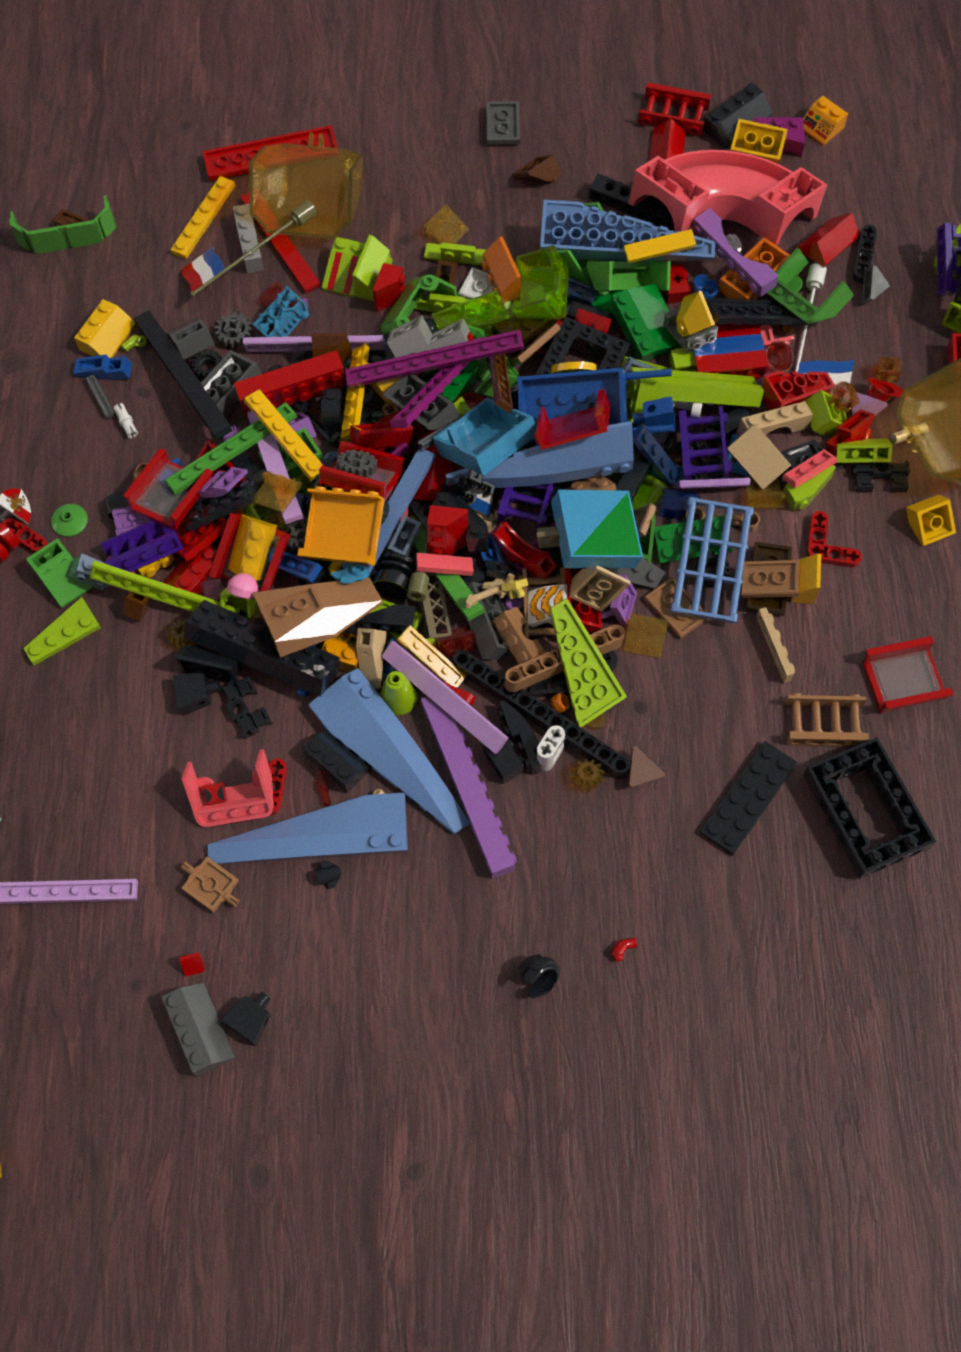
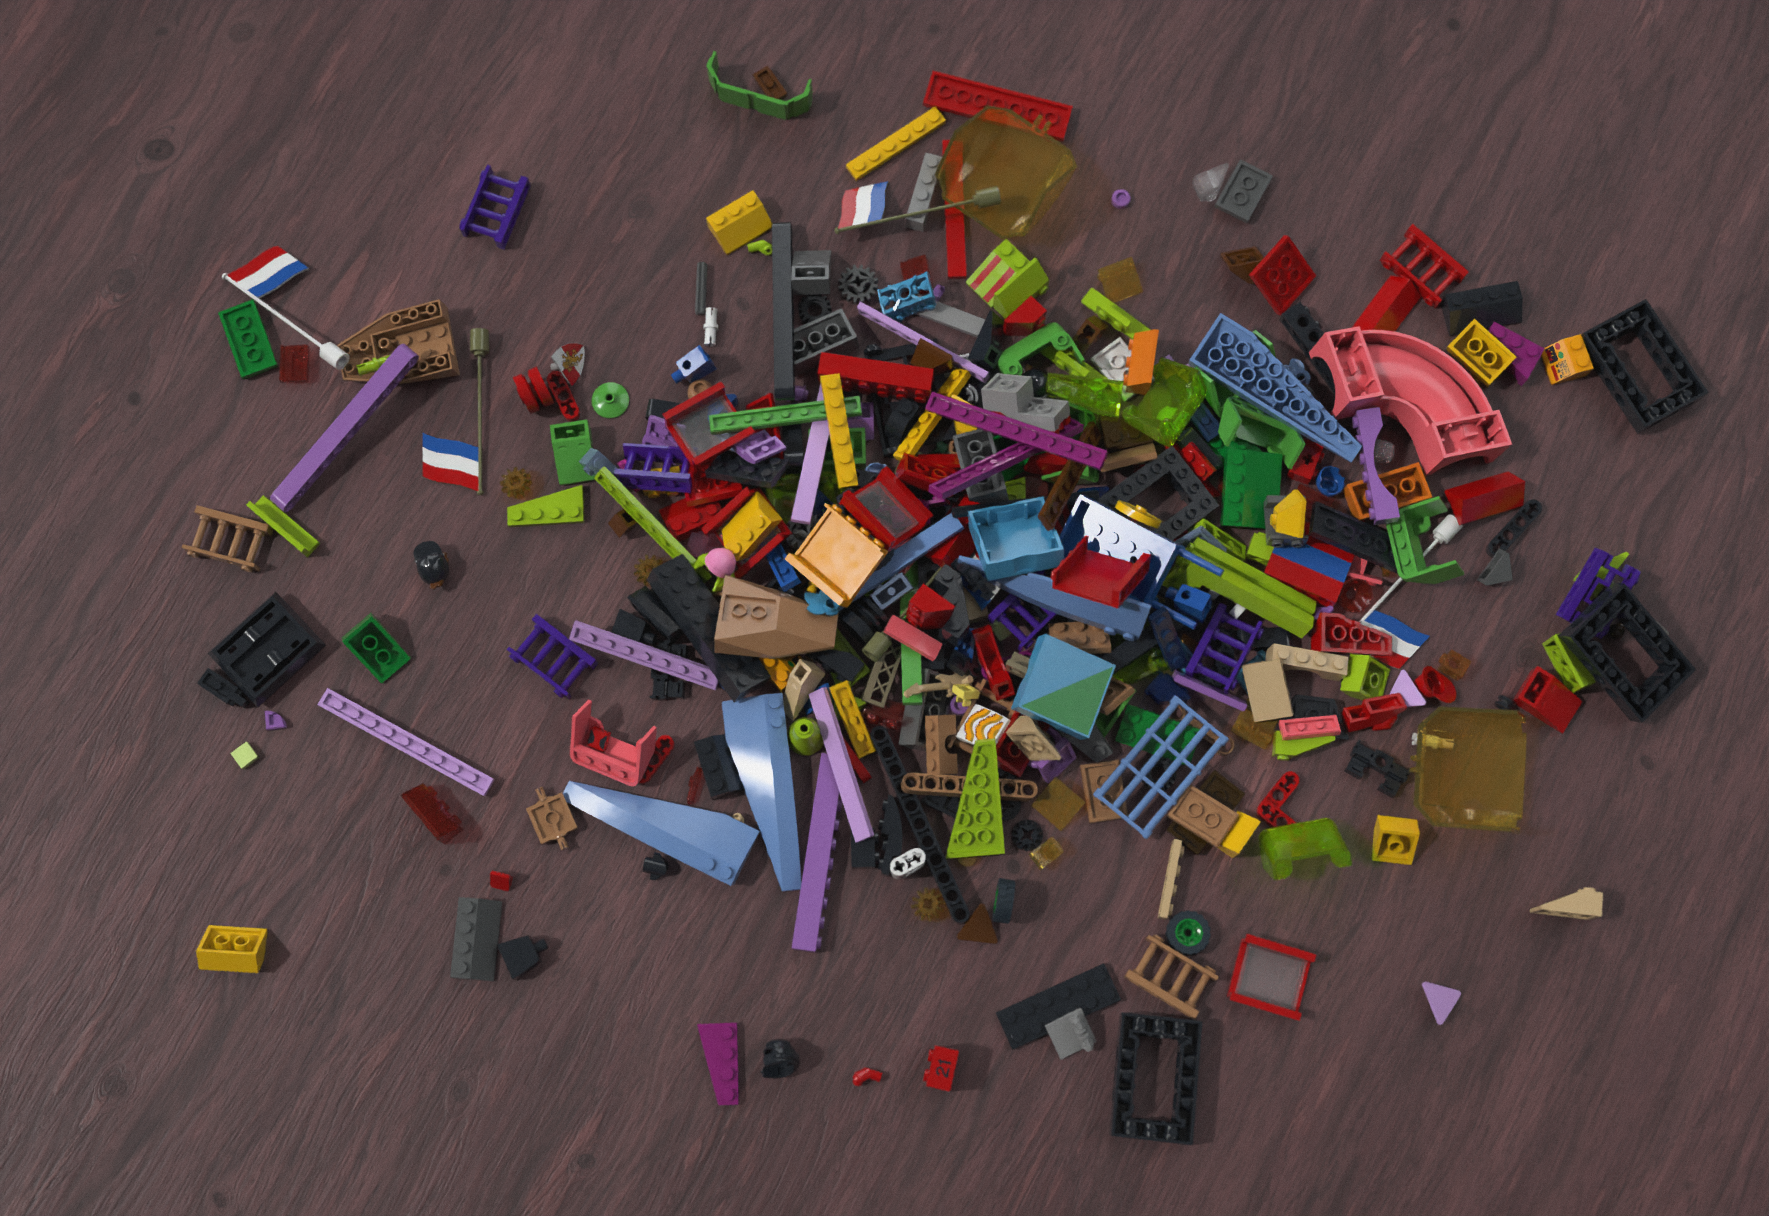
camera: 30 degrees right, 10 degrees up
(20, 624) = (516, 489): none -> clear yellow gear
(95, 938) = (433, 812): none -> clear red slope
(103, 367) = (718, 260): blue slope -> none
(128, 454) = (693, 366): none -> blue torso
(128, 730) = (555, 638): none -> dark purple fence
(216, 700) = (643, 654): none -> lavender tile
(276, 491) = (799, 487): clear yellow hinge -> none
(329, 318) = (954, 318): none -> light grey tile
(357, 463) = (884, 500): dark grey gear -> none
(368, 319) = (988, 344): none -> black slope
(410, 173) = (1120, 199): none -> medium lavender tile
(472, 377) = (1045, 464): none -> red slope
(473, 129) = (1209, 182): none -> clear slope
(484, 1004) = (721, 1054): none -> magenta wing
(516, 524) = (1000, 631): none -> yellowish green tile
(560, 703) = (943, 824): orange tile -> none
(572, 161) = (1282, 275): none -> red plate
(640, 681) = (1026, 844): none -> black gear
(650, 733) = (1003, 900): none -> black wheel
(660, 246) = (1304, 423): yellow tile -> none
(661, 678) = (1046, 853): none -> clear yellow bracket
(685, 901) = (941, 1068): none -> red brick
(775, 812) = (1071, 1034): none -> light grey hinge
(820, 668) = (1188, 921): none -> black wheel
(849, 400) = (1392, 671): clear orange brick -> none
(849, 568) = (1301, 841): none -> clear neon green windscreen
(865, 451) = (1375, 738): lime slope -> none
(890, 81) = (1664, 352): none -> black brick

